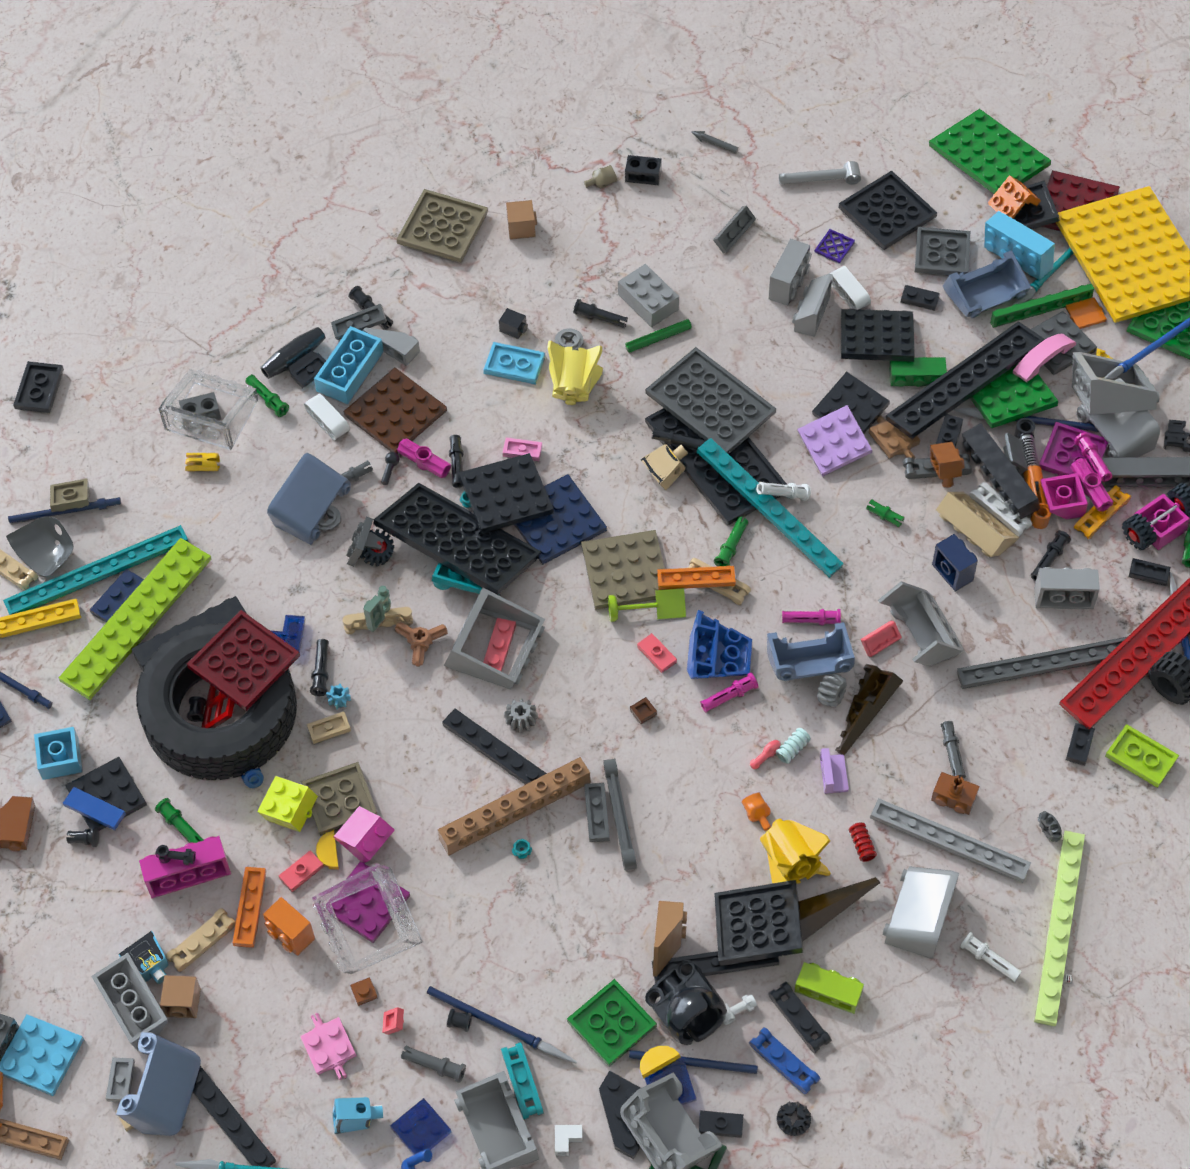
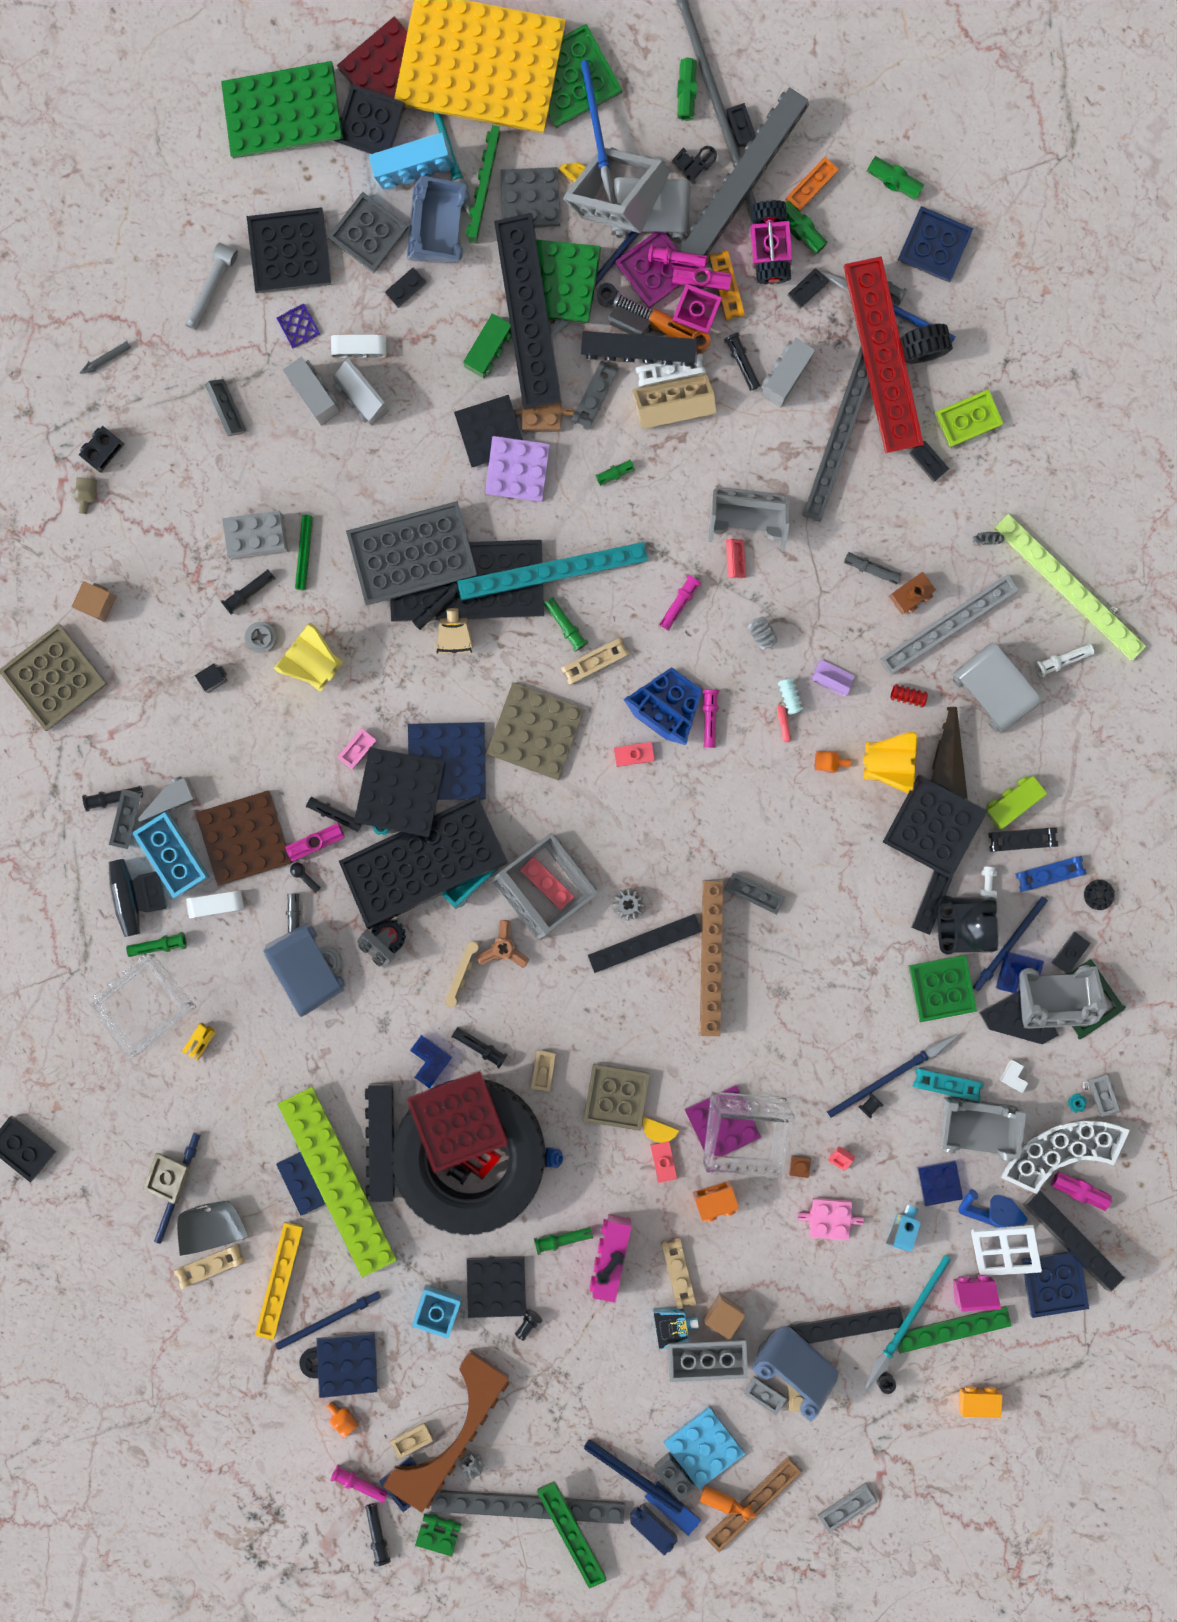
camera: 60 degrees left, 30 degrees up
(94, 571) = (263, 1191): teal plate -> none
(94, 808) = (509, 1306): blue tile -> none
(203, 405) = (134, 1013): dark grey brick -> none
(249, 907) = (673, 1220): orange plate -> none
(287, 804) = (602, 1145): neon yellow brick -> none
(338, 696) = (522, 1043): medium azure gear -> none
(363, 834) = (666, 1096): dark pink slope -> none
(376, 608) = (466, 980): sand green plate -> none
(442, 1066) = (902, 1139): dark grey pin -> none
(514, 363) = (254, 700): medium azure tile -> none
(521, 843) = (755, 972): teal plate -> none
(627, 849) = (768, 876): dark grey piece -> none
(643, 710) = (684, 799): reddish brown plate -> none
(657, 1059) = (998, 974): yellow tile -> none
(668, 603) = (594, 717): lime piece -> none
(668, 933) = (897, 899): medium nougat slope -> none
(696, 577) = (588, 679): orange plate -> none
(790, 490) = (550, 536): white pin -> none
(811, 657) = (726, 632): sand blue windscreen -> none
(873, 694) = (783, 599): dark brown wedge -> none
(877, 335) = (428, 356): black plate -> none
(946, 462) = (605, 388): dark orange brick -> none
(950, 430) = (573, 366): black brick -> none
(954, 562) = (706, 448): dark blue brick -> none
(1012, 197) = (355, 129): orange bracket -> none
(1042, 353) = (544, 224): bright pink slope -> none
(1086, 313) = (513, 149): orange piece -> none

